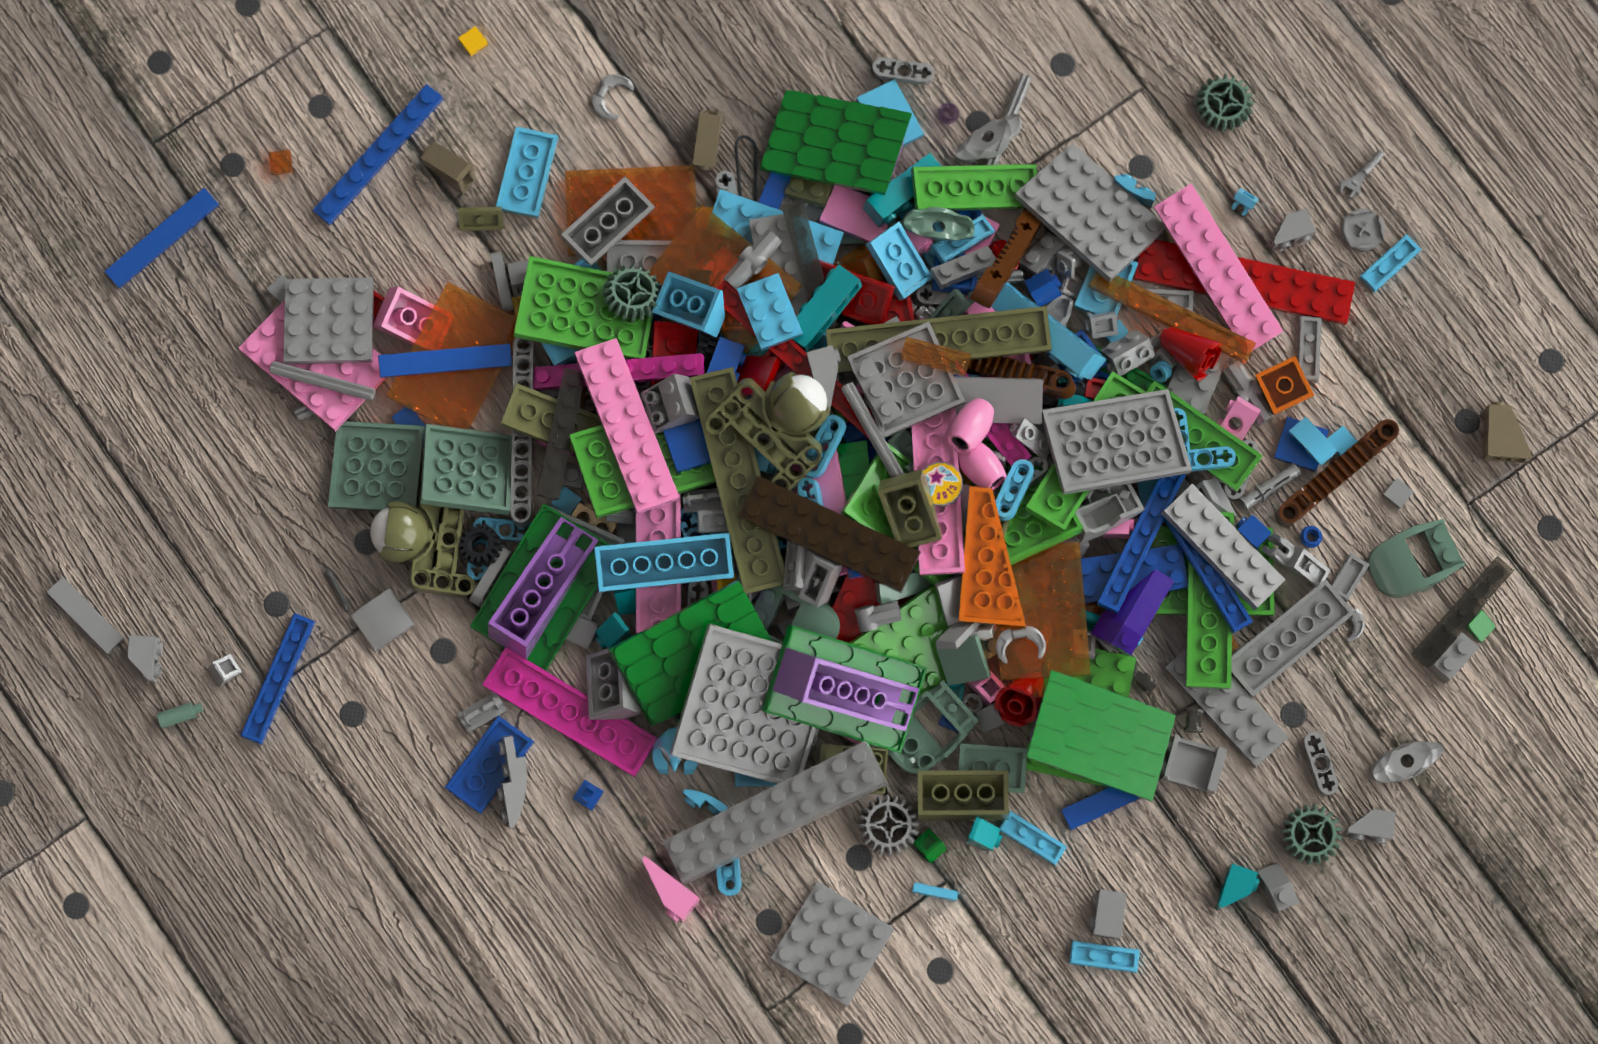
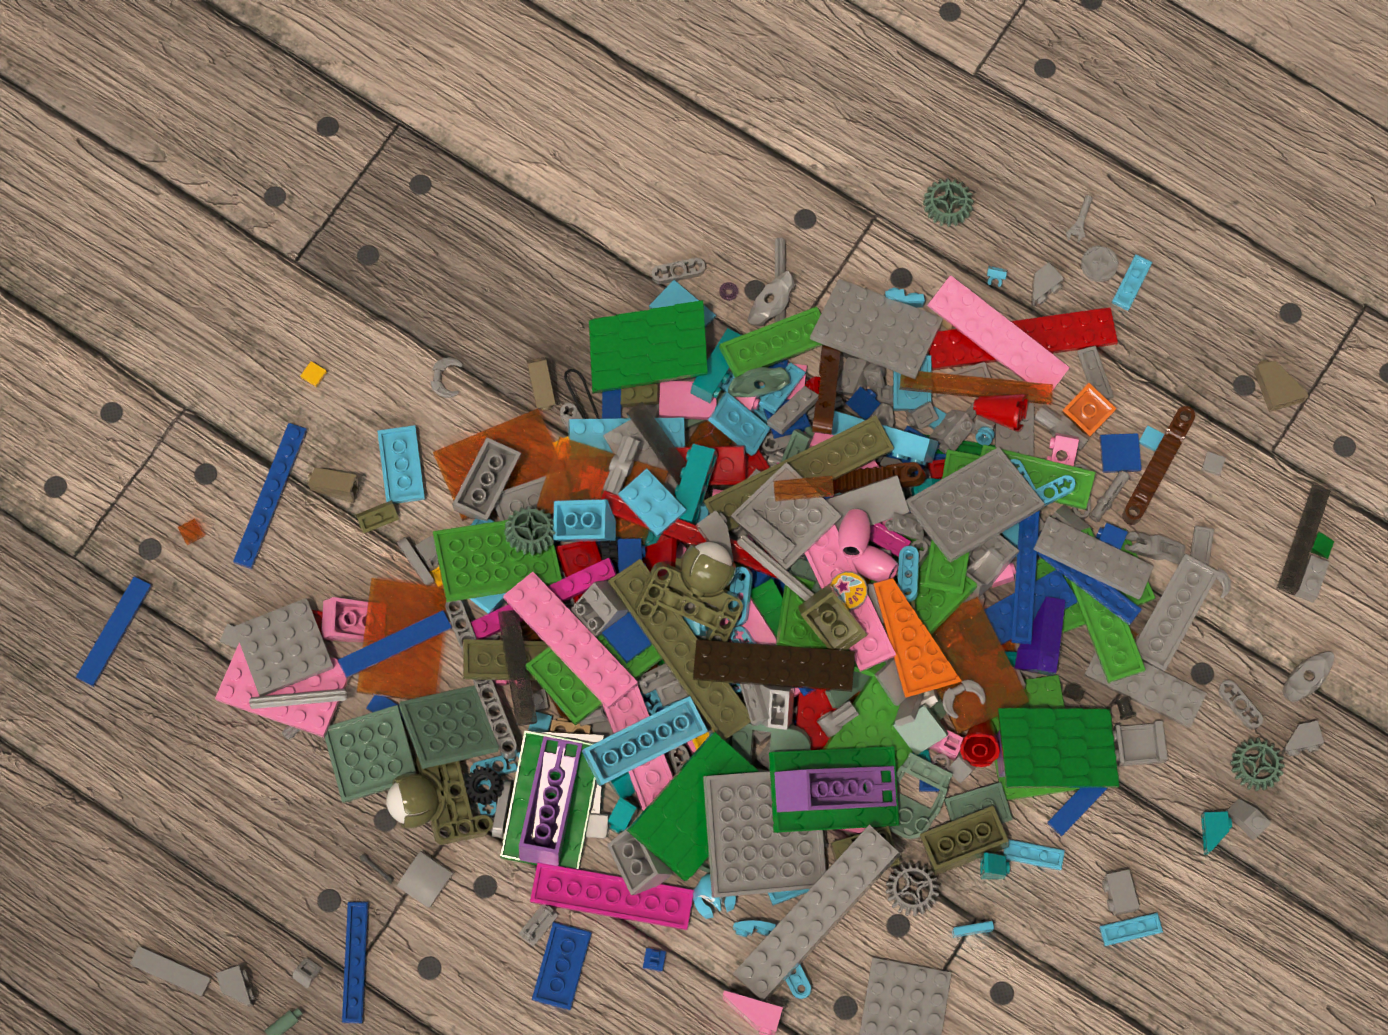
camera: 20 degrees left, 5 degrees down
(514, 790) = (591, 980): light grey slope -> none
(930, 845) = (952, 893): green slope -> none
(1313, 441) = (1130, 446): medium azure slope -> none
(1315, 532) = (1160, 519): blue plate -> none
(1396, 569) = (1236, 524): sand green slope -> none

